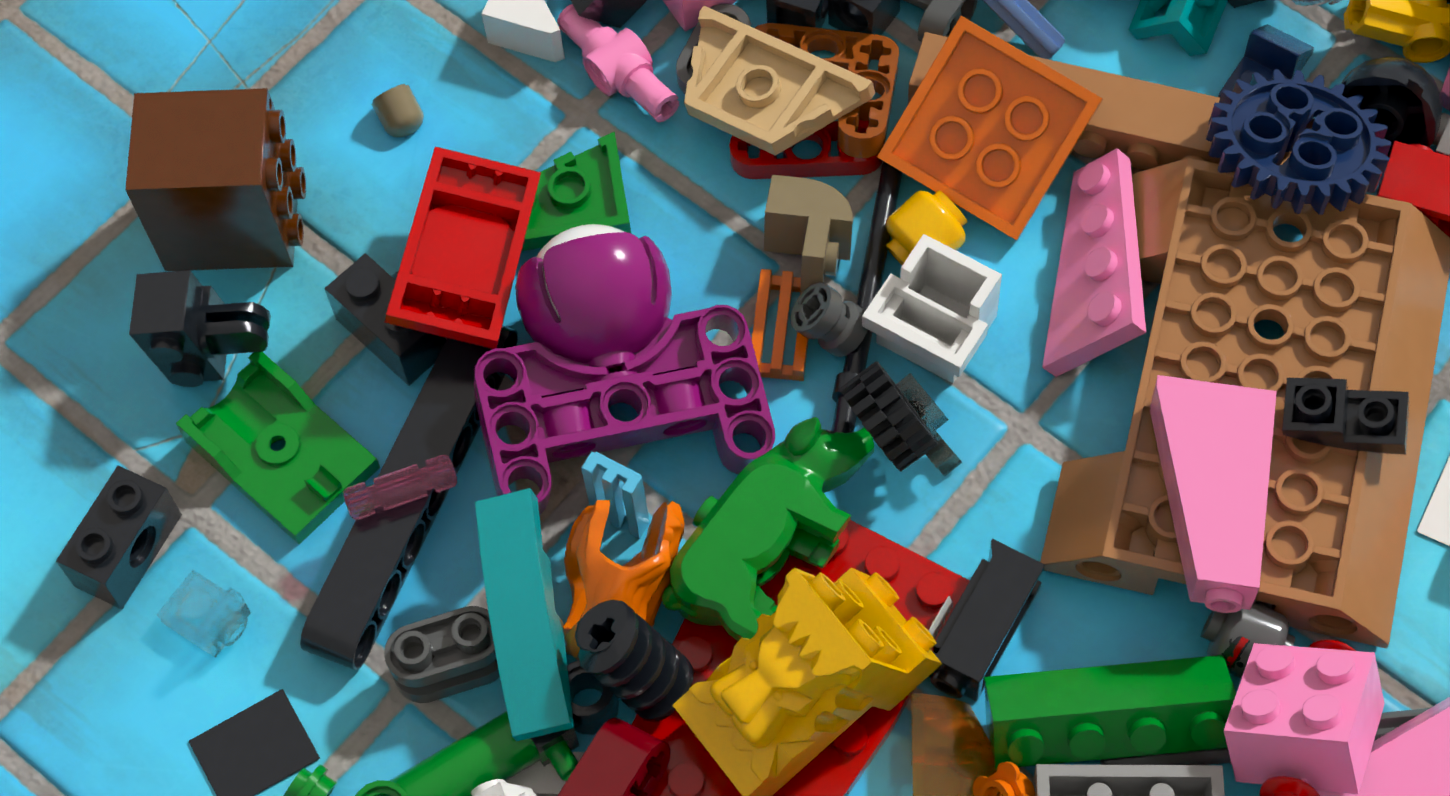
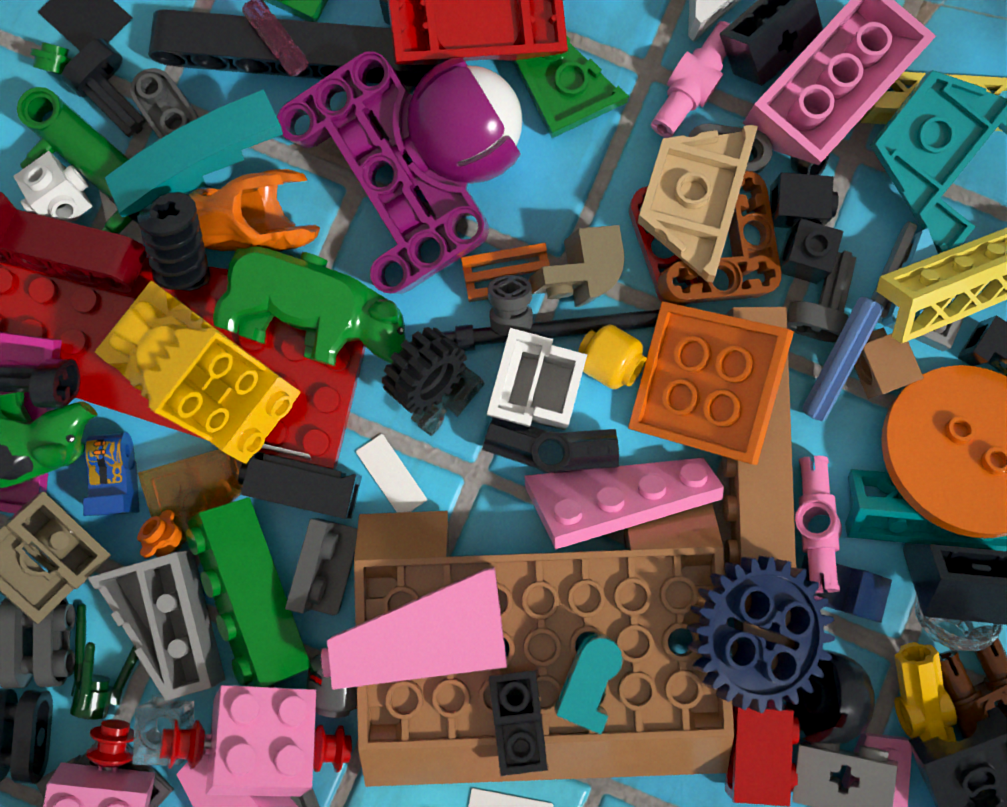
camera: 70 degrees right, 20 degrees up
(354, 753) = (89, 75): none -> black piece
(602, 483) = (318, 193): medium azure tile -> none
(1002, 522) = (391, 475): none -> white sticker
(1006, 349) = (580, 449): none -> black piece
(1094, 619) = (323, 567): none -> dark grey bracket
(1158, 67) = (814, 502): none -> bright pink pin
(1313, 324) = (594, 664): none -> teal leg

